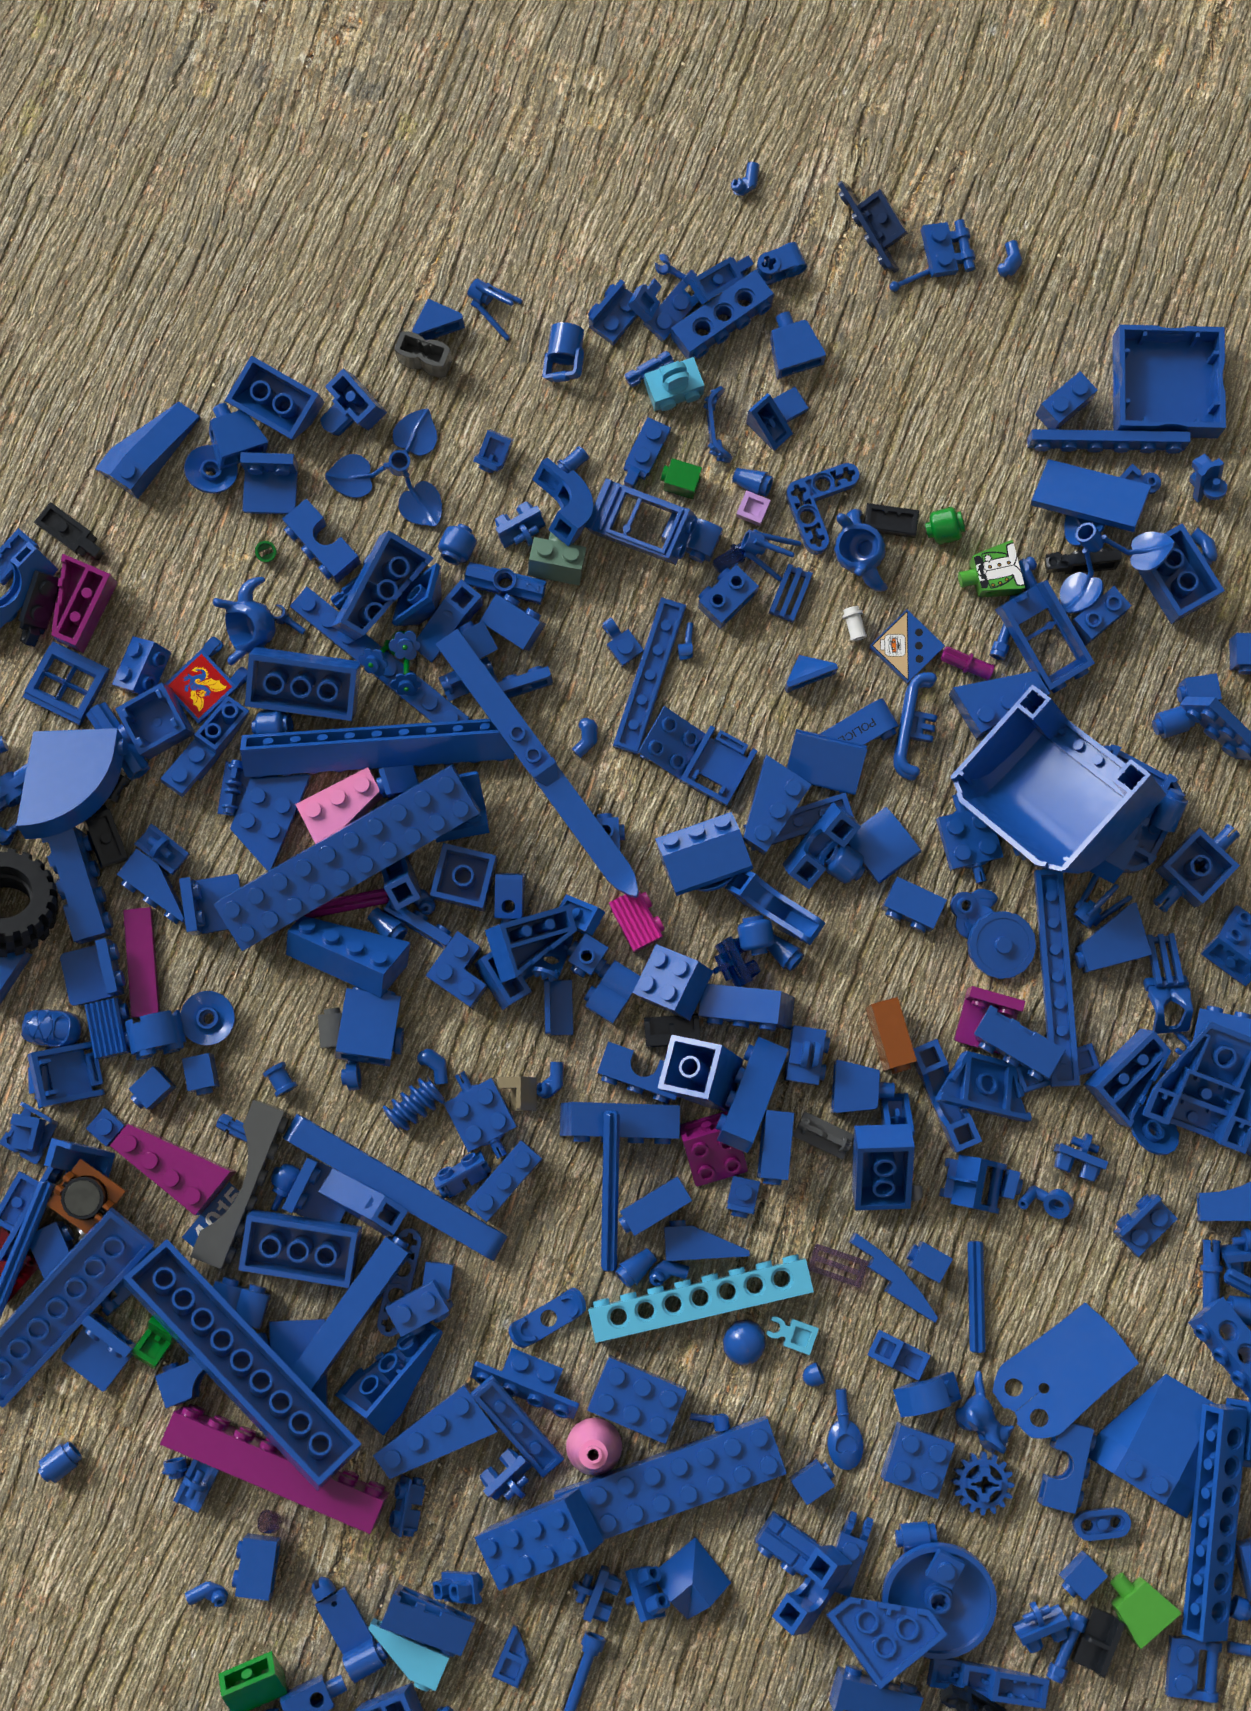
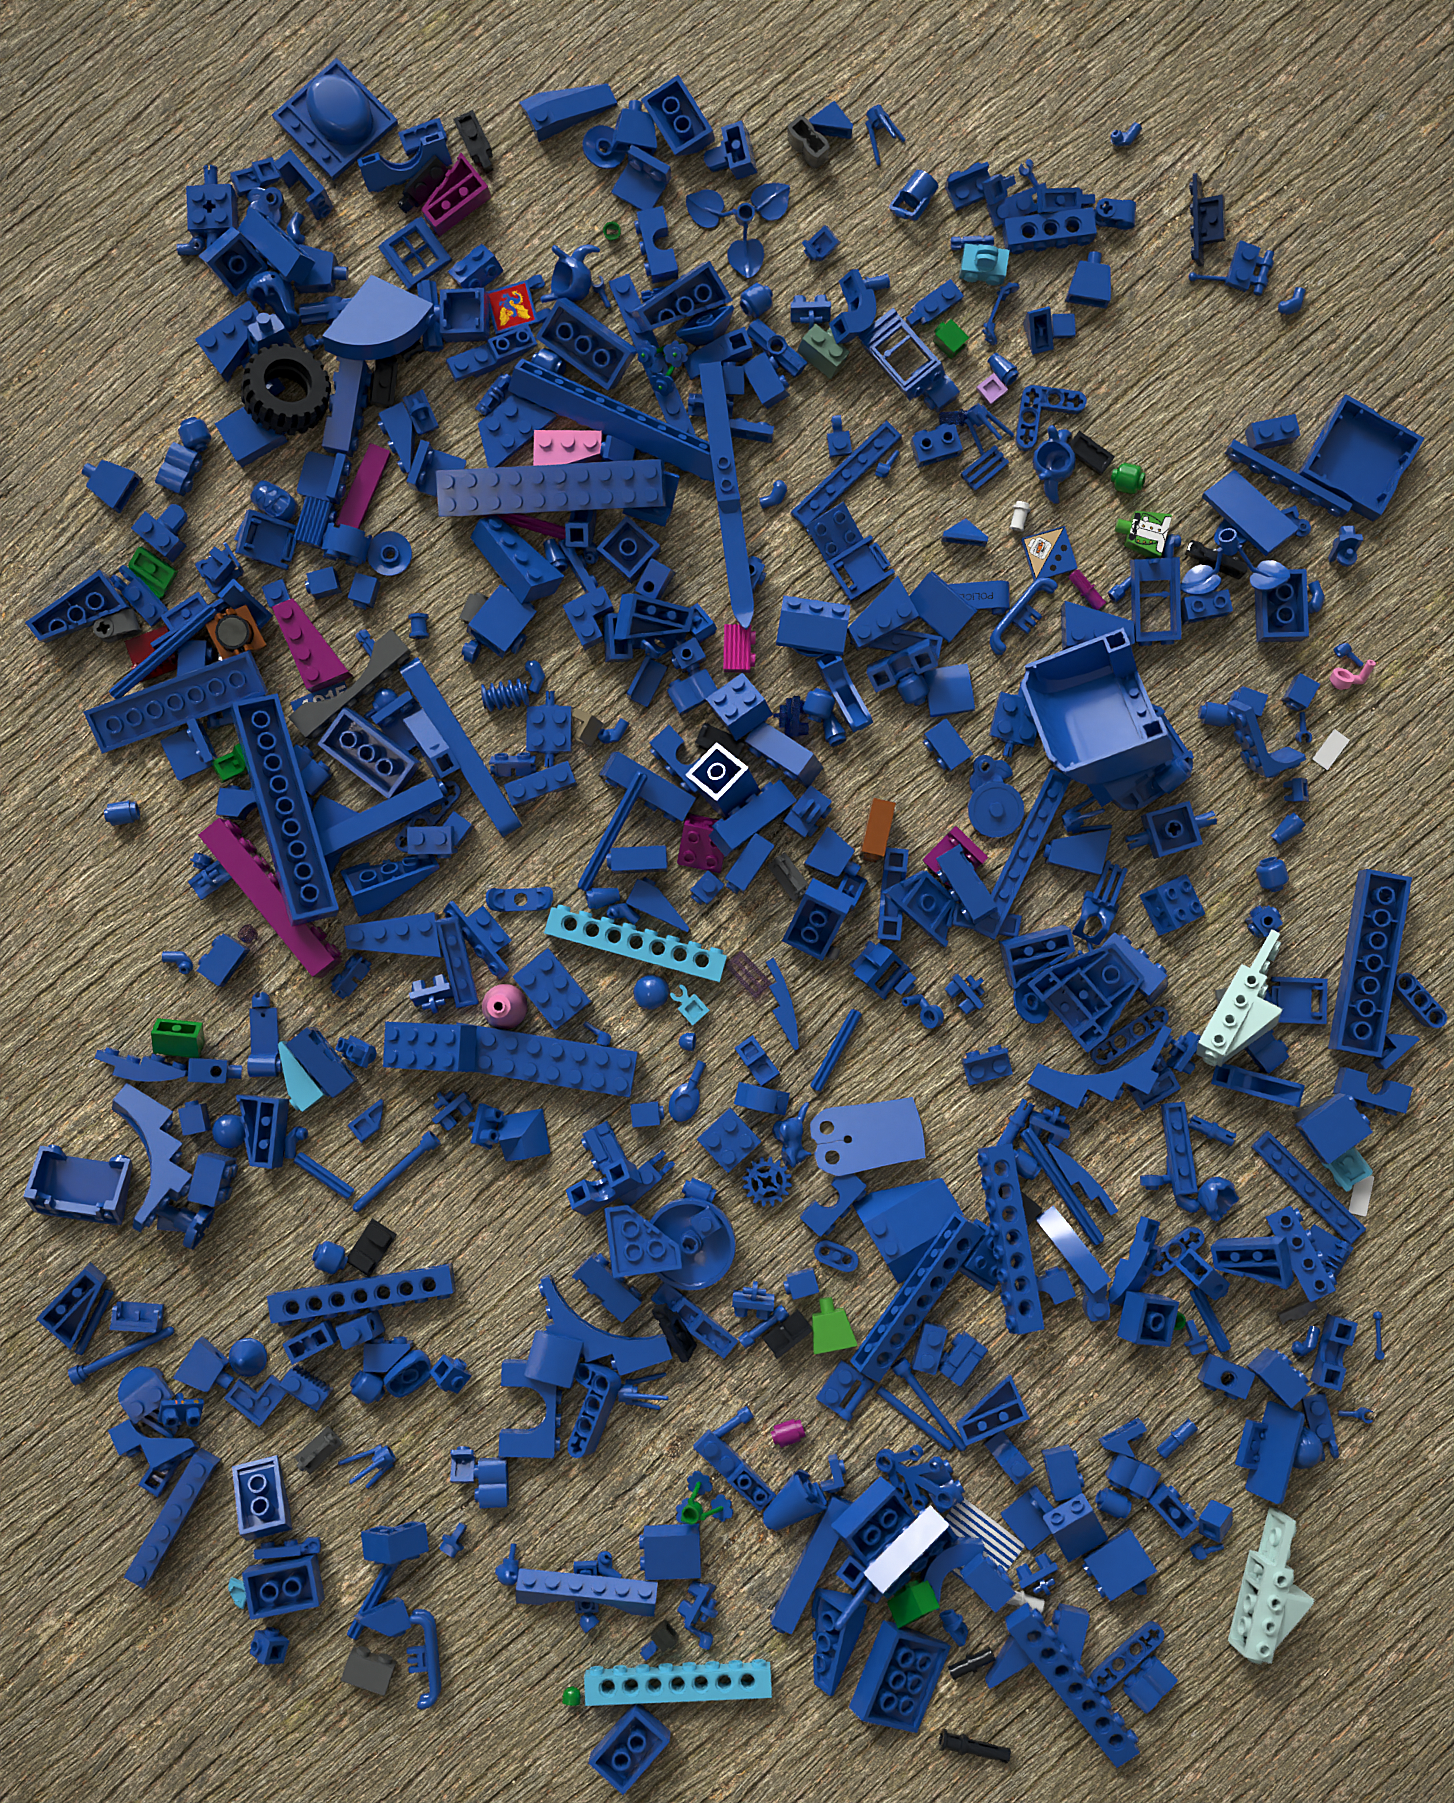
camera: 30 degrees right, 5 degrees up
(928, 1261) = (814, 1006): blue brick -> none

